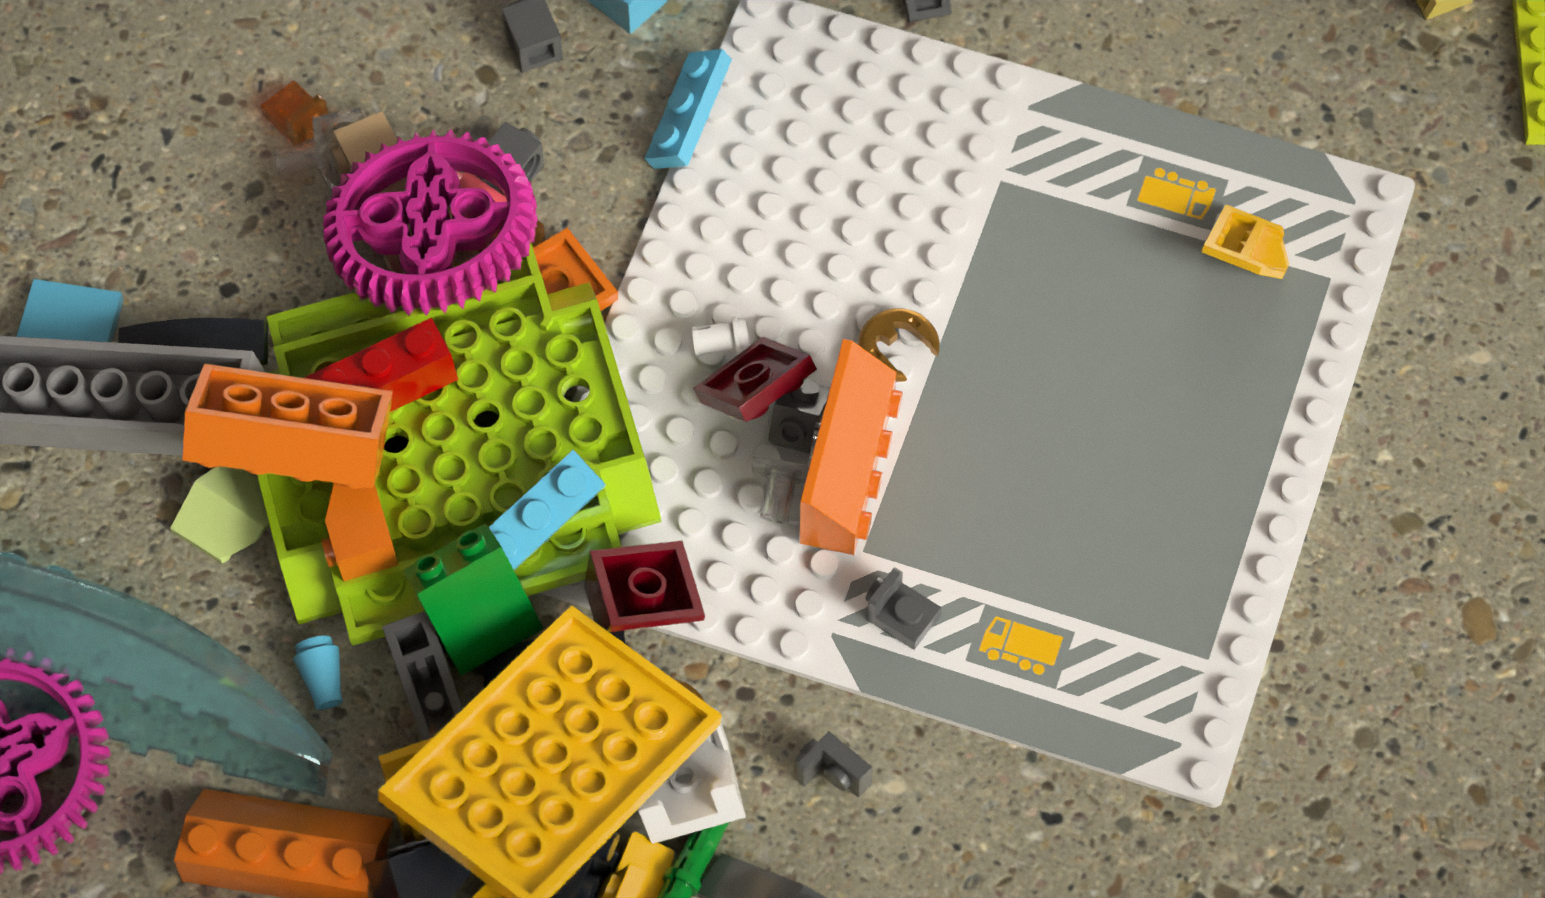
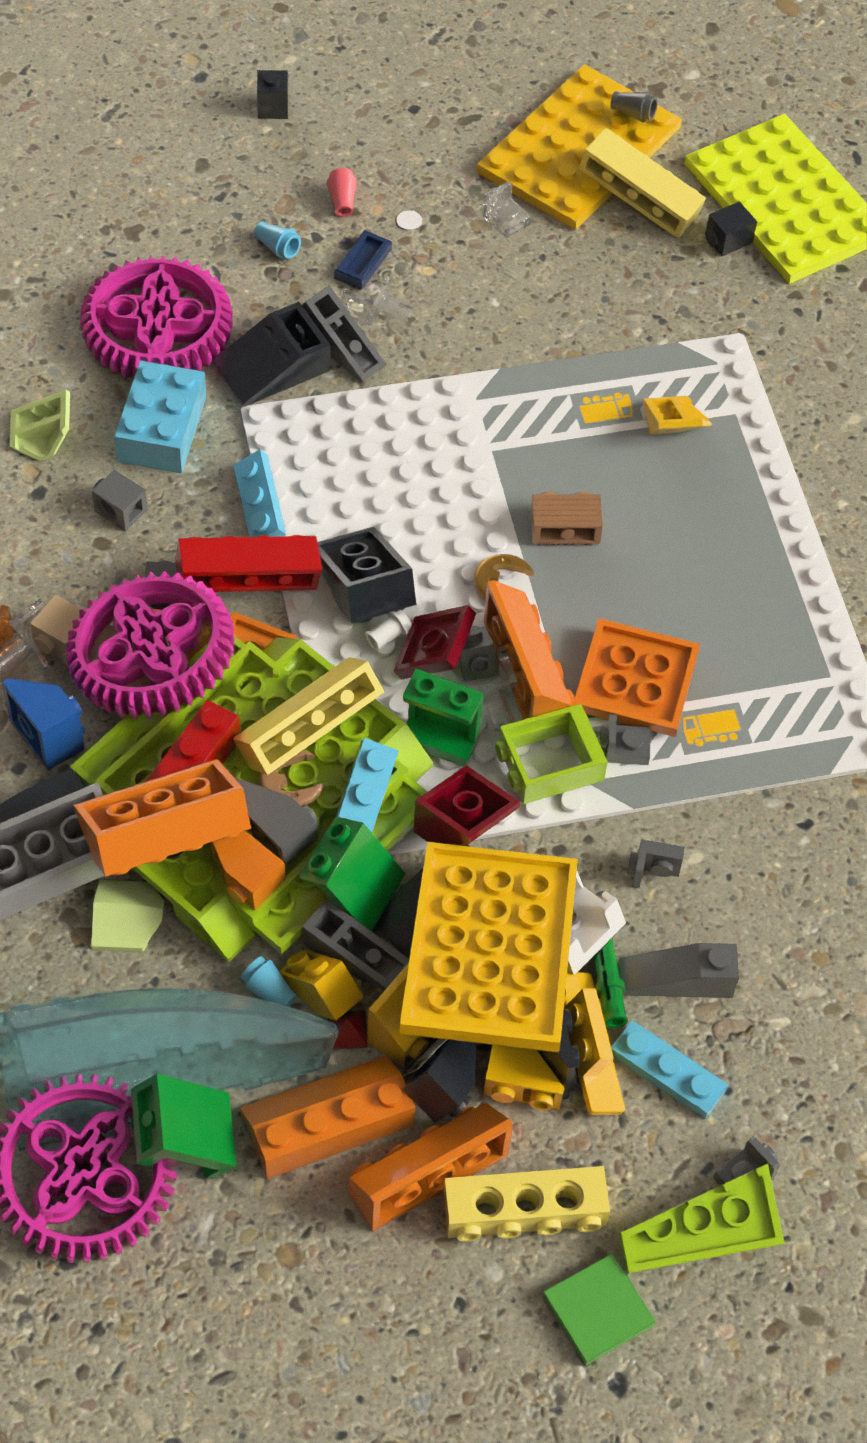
camera: 35 degrees left, 5 degrees down
(118, 774) = (183, 1124): none -> green panel
(277, 253) = (45, 719): none -> blue slope
(364, 767) = (351, 1030): none -> dark red slope
(373, 701) = (321, 983): none -> yellow slope
(421, 488) = (279, 821): none -> dark grey slope
(453, 449) = (278, 781): none -> medium nougat head
(532, 392) = (308, 715): none -> light yellow brick
(611, 180) = (251, 562): none -> red brick
(695, 472) = (444, 716): none -> green panel
(736, 257) = (366, 575): none -> black slope
(806, 542) = (546, 726): none -> lime window
(968, 539) = (637, 676): none -> orange plate
(1020, 306) = (566, 518): none -> medium nougat brick
(1492, 38) = (730, 228): none -> black brick

